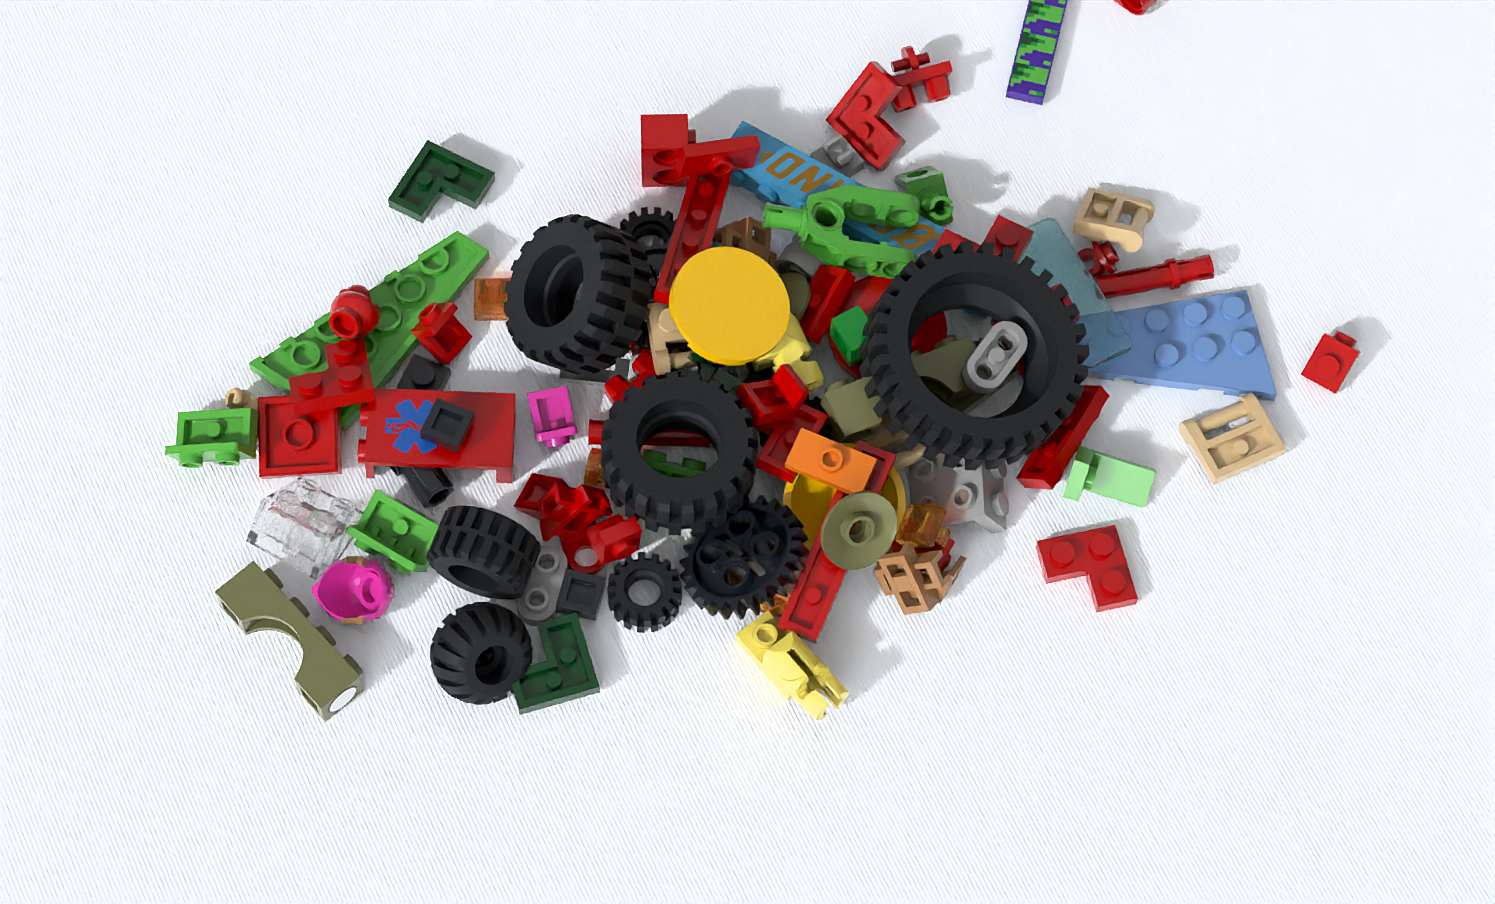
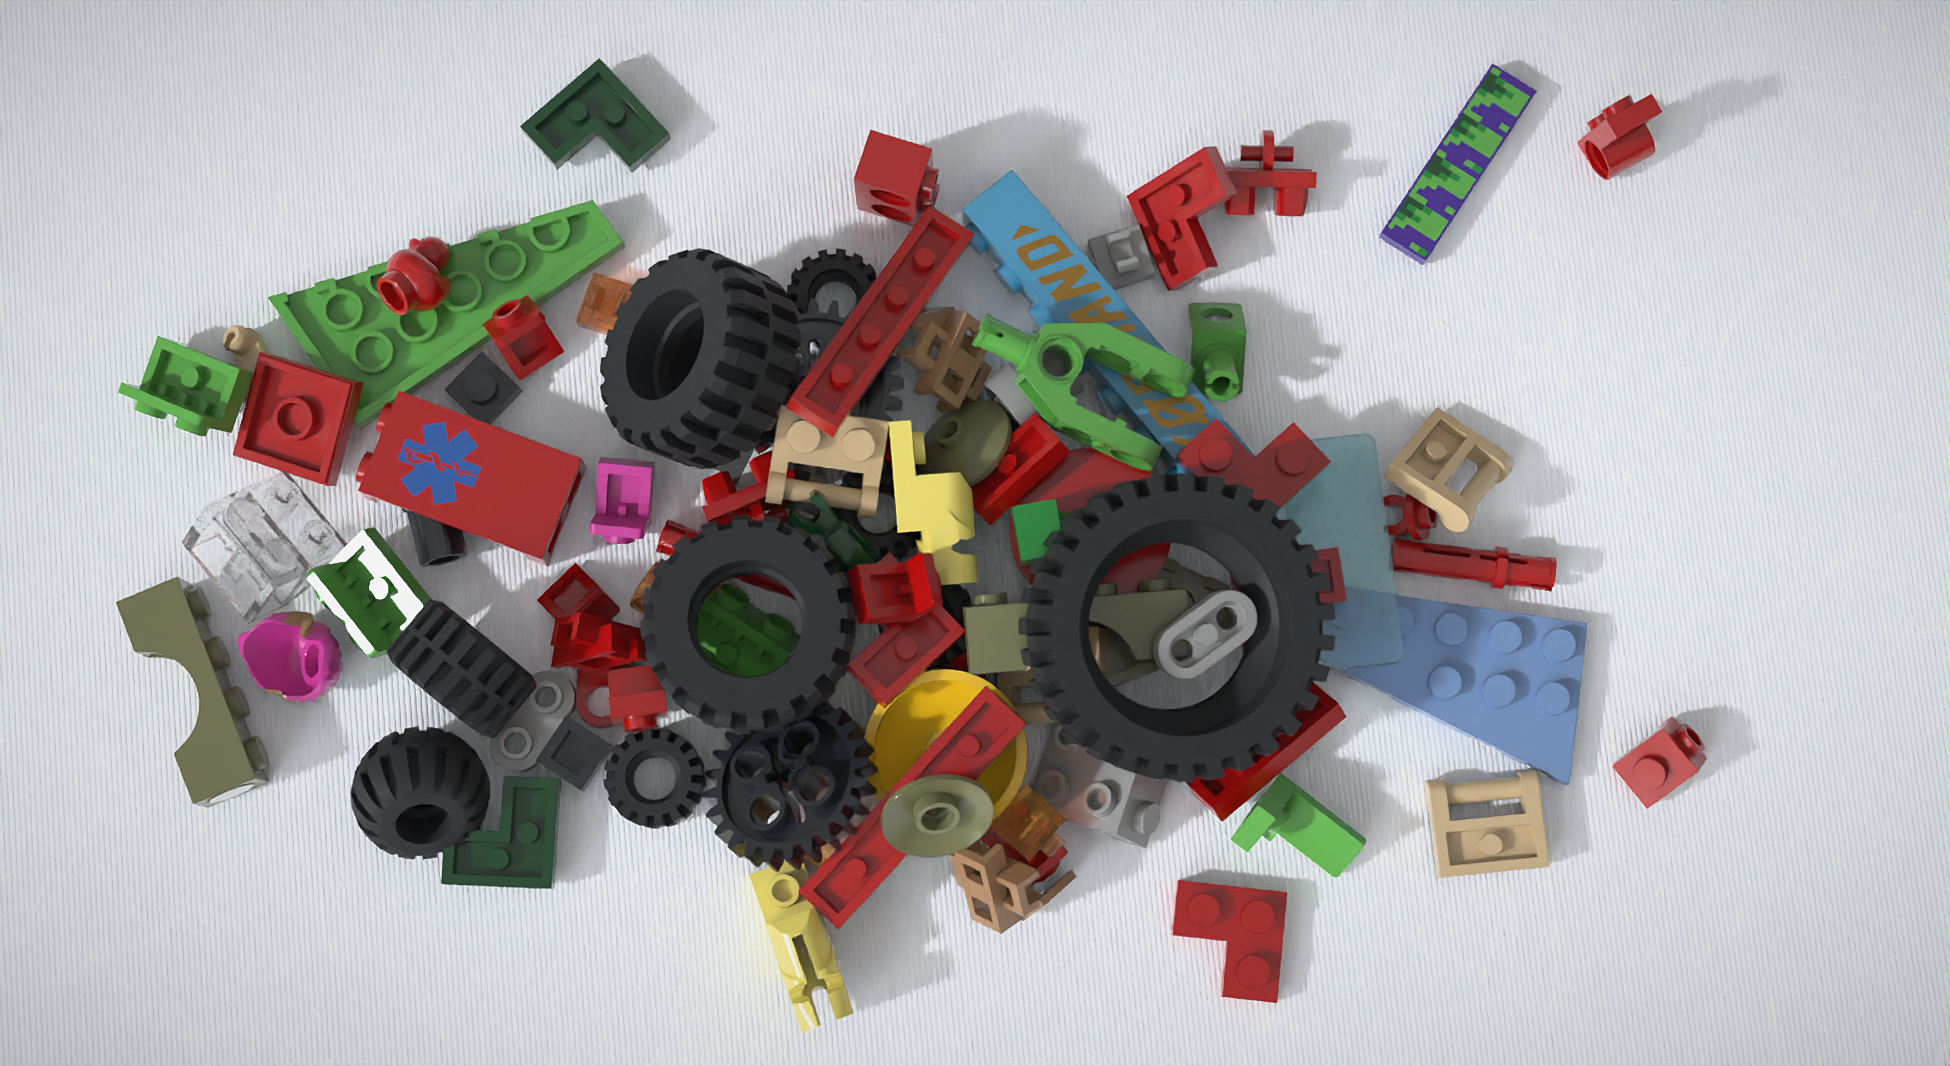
camera: 20 degrees right, 15 degrees up
(343, 384) = (359, 379): red plate -> none
(447, 425) = (474, 480): black plate -> none
(718, 156) = (953, 220): red plate -> none
(729, 305) = (879, 452): yellow tile -> none
(830, 462) = (937, 708): orange plate -> none

